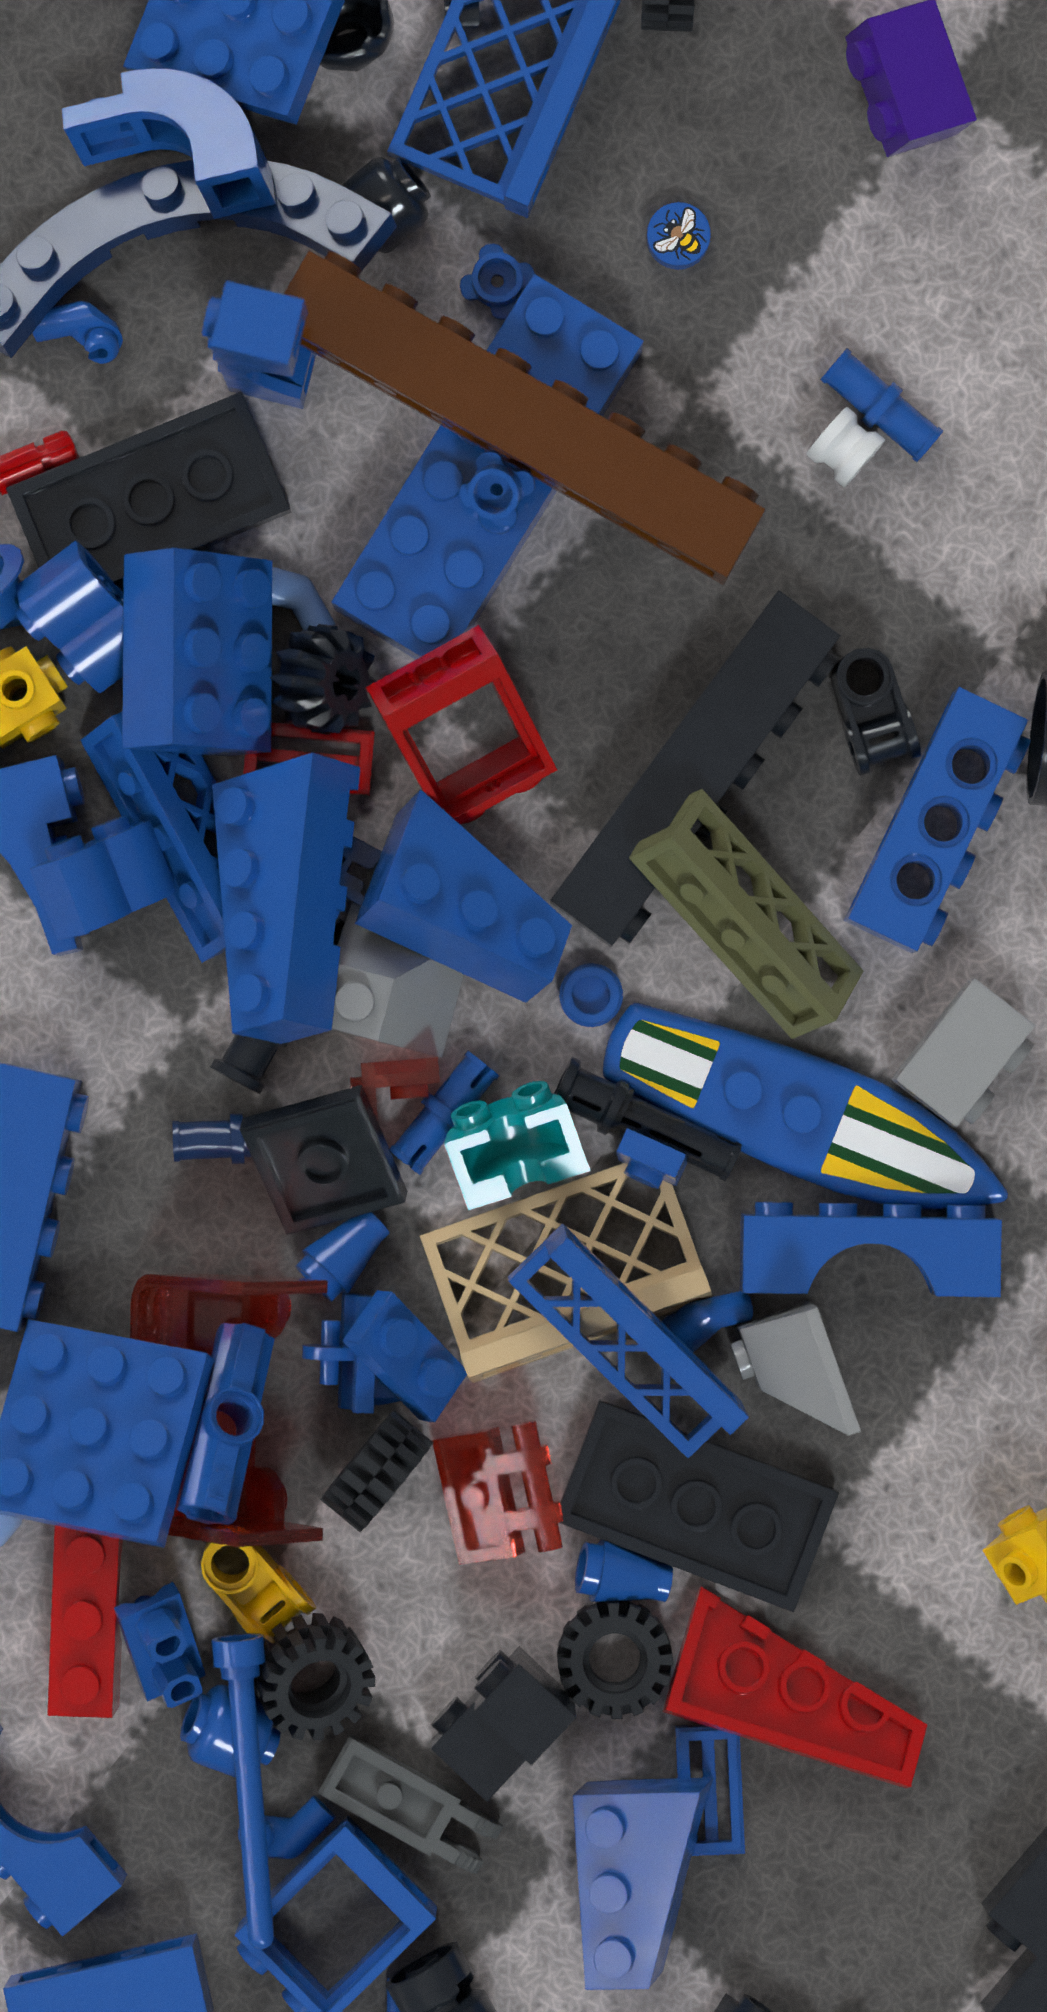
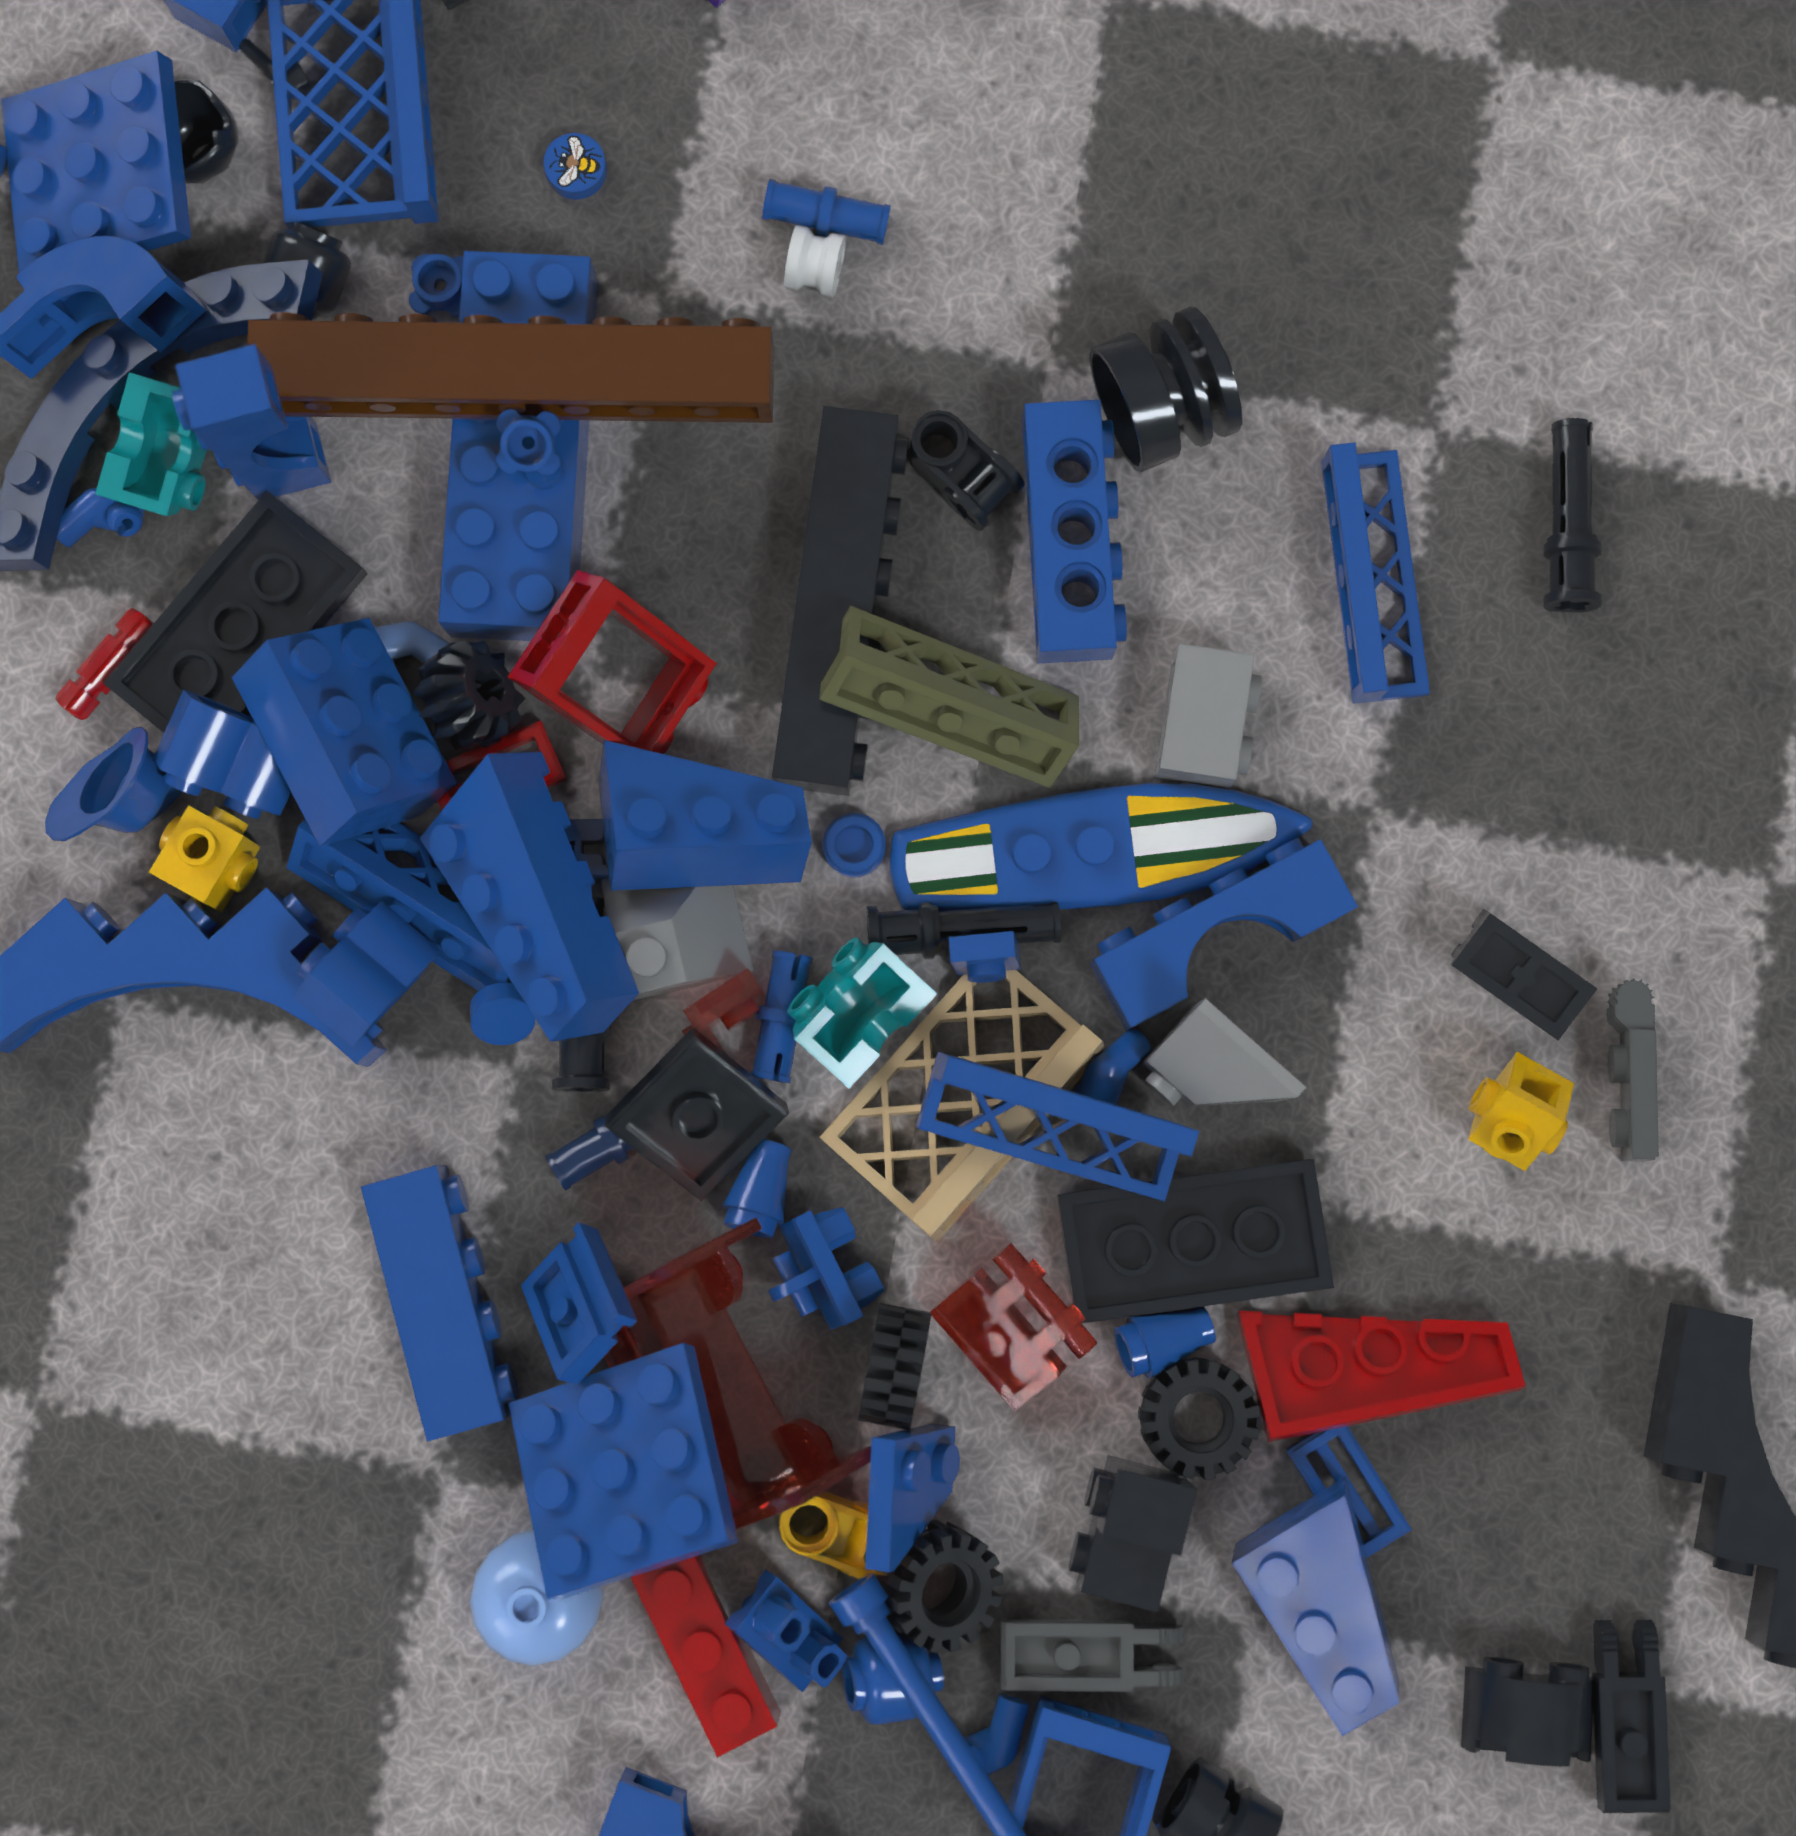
camera: 30 degrees left, 5 degrees down
(133, 1267) = (577, 1304): none -> blue plate
(162, 301) = (154, 457): none -> teal cylinder
(199, 976) = (500, 1015): none -> blue tile
(217, 1459) = (742, 1432): blue piece -> none
(331, 1579) = (907, 1487): none -> blue wing
(405, 1356) = (864, 1249): blue plate -> none

